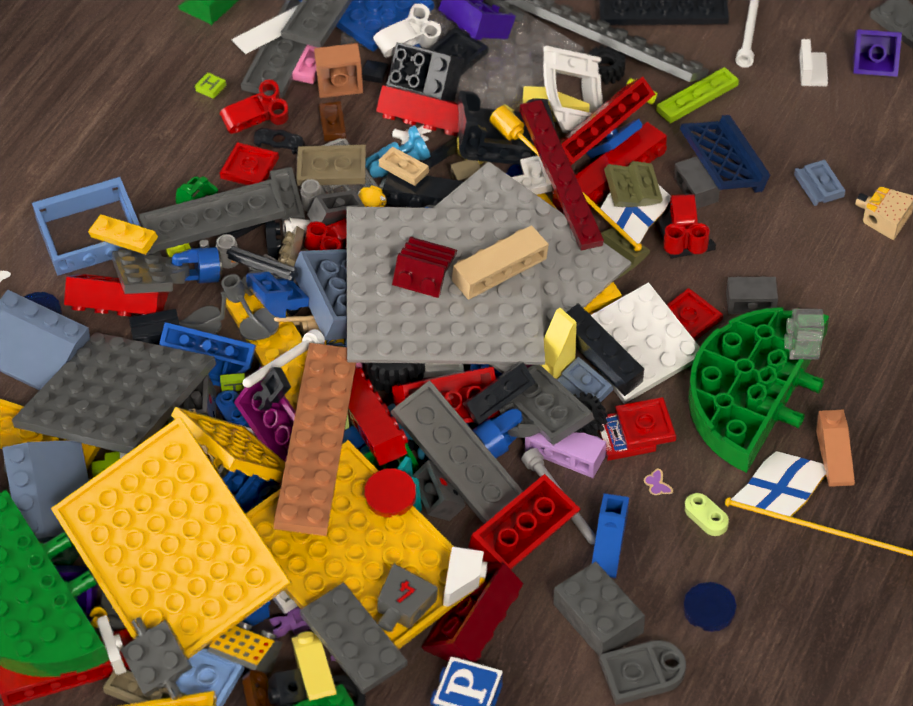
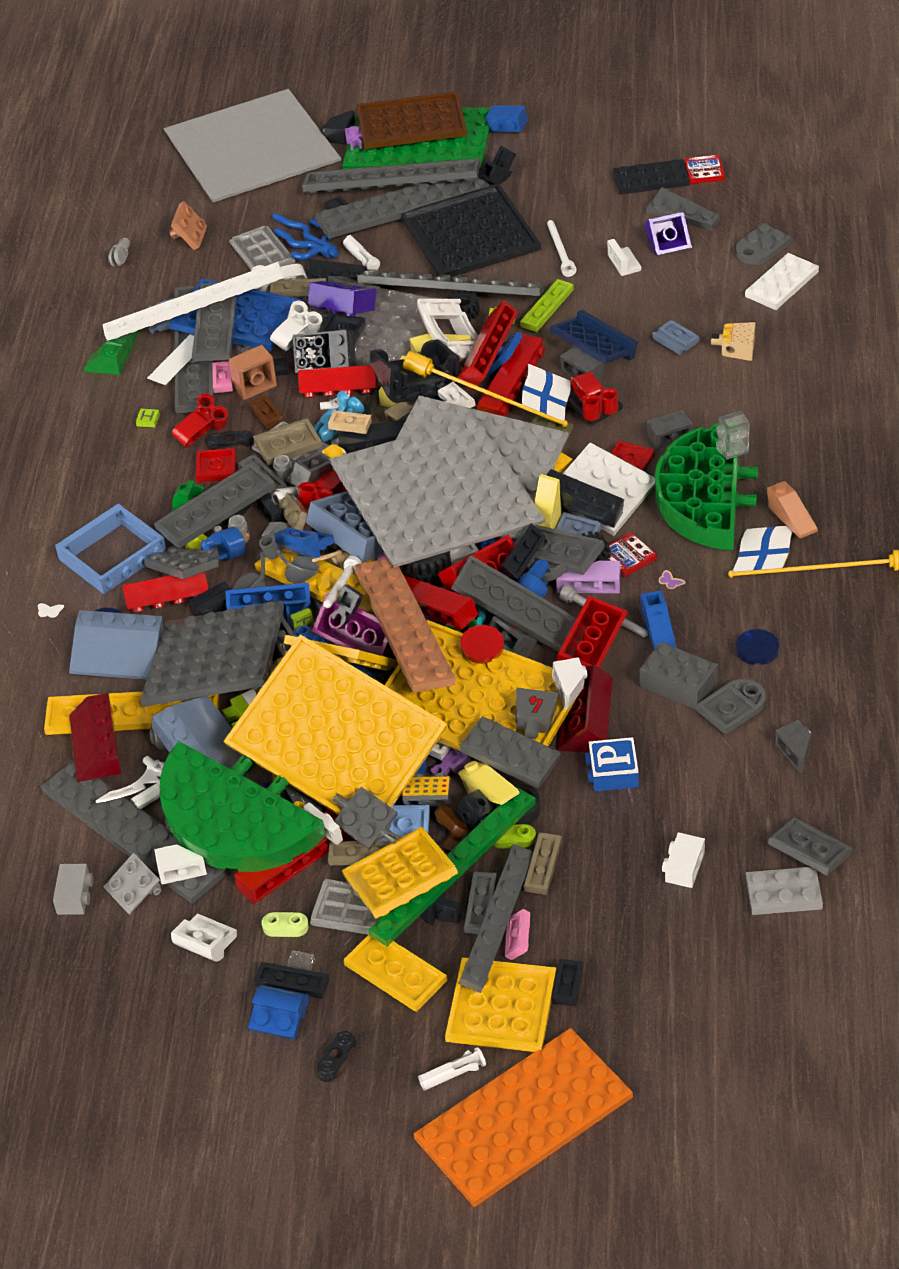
camera: 20 degrees left, 5 degrees down
(123, 234) = (149, 541): yellow plate -> none
(262, 263) = (278, 524): black axle -> none
(423, 266) = (418, 480): dark red plate -> none
(499, 262) = (474, 458): tan brick -> none
(561, 175) = (483, 386): dark red plate -> none
(633, 185) = (538, 379): olive slope -> none
(645, 423) = (640, 541): red tile -> none
(704, 513) = (719, 587): yellowish green plate -> none

